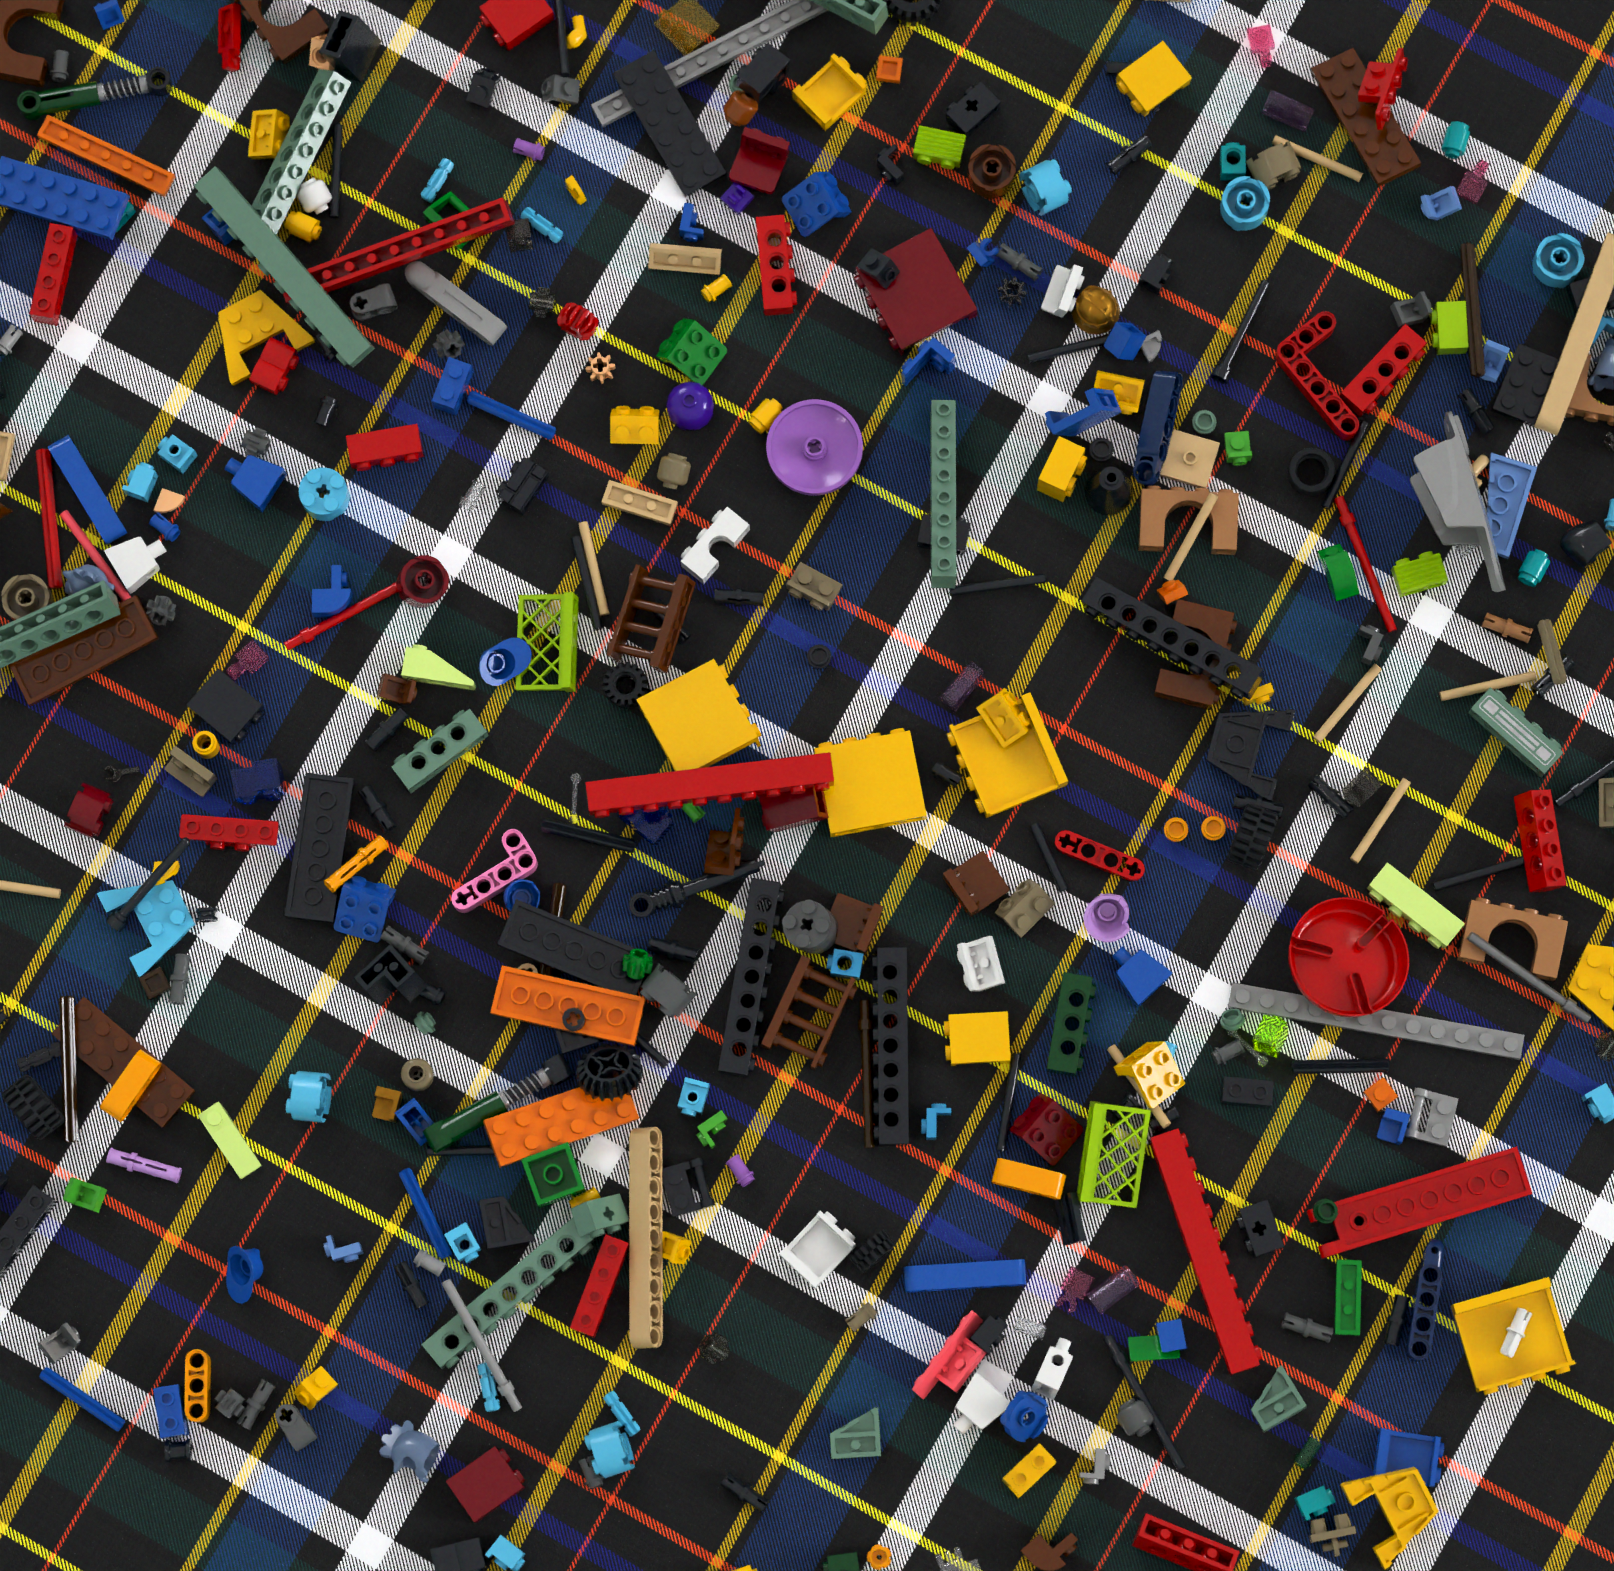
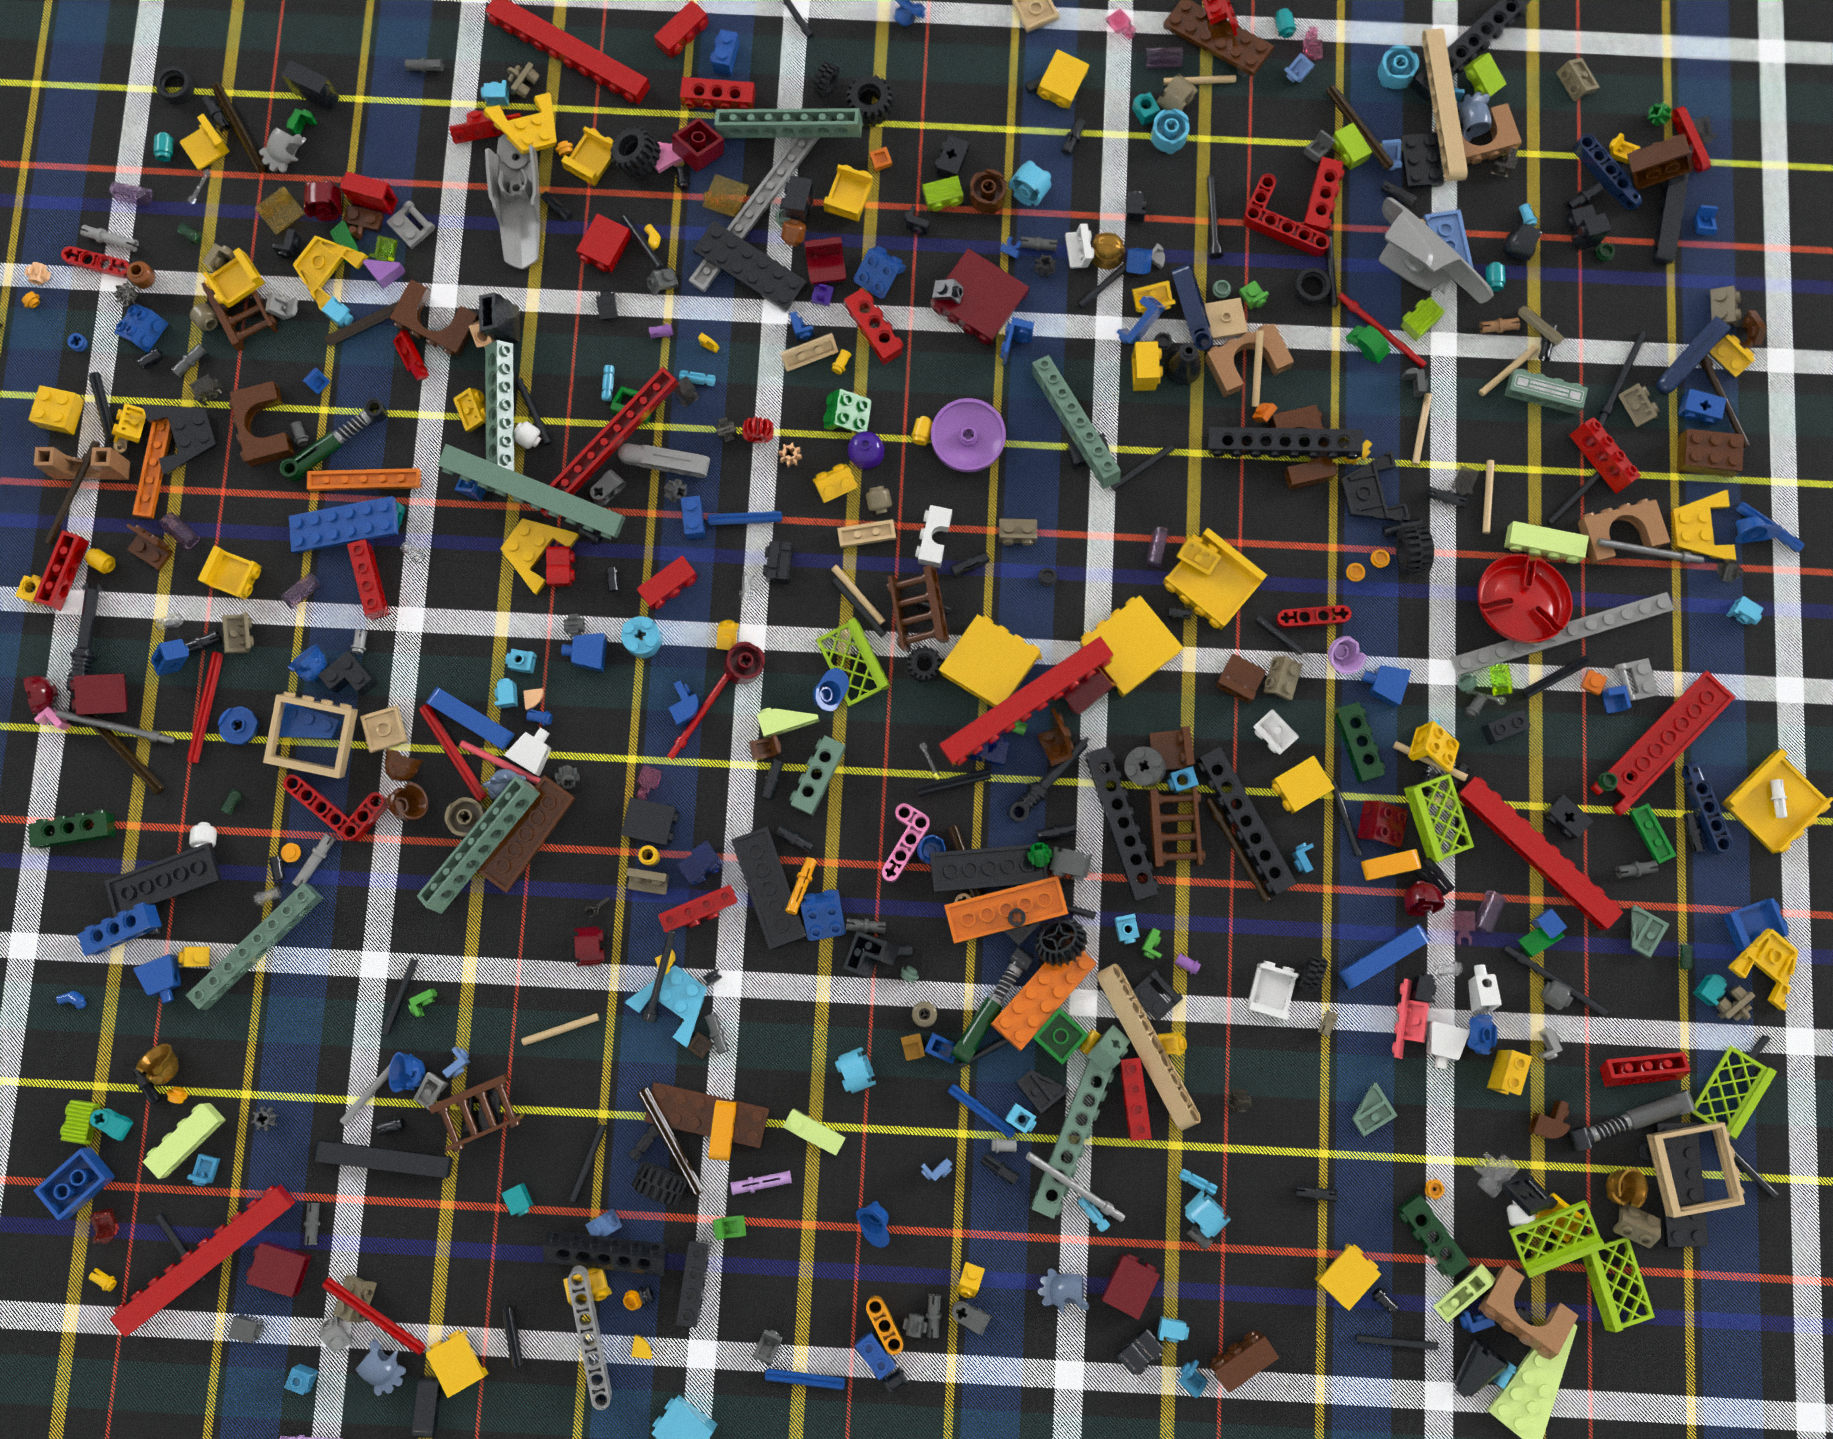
camera: 30 degrees left, 0 degrees up
(120, 272) = (416, 555): none -> clear pin
(303, 226) = (530, 459): yellow brick -> none
(421, 539) = (727, 634): none -> yellow bracket
(1042, 1234) = (1423, 898): none -> dark red cylinder

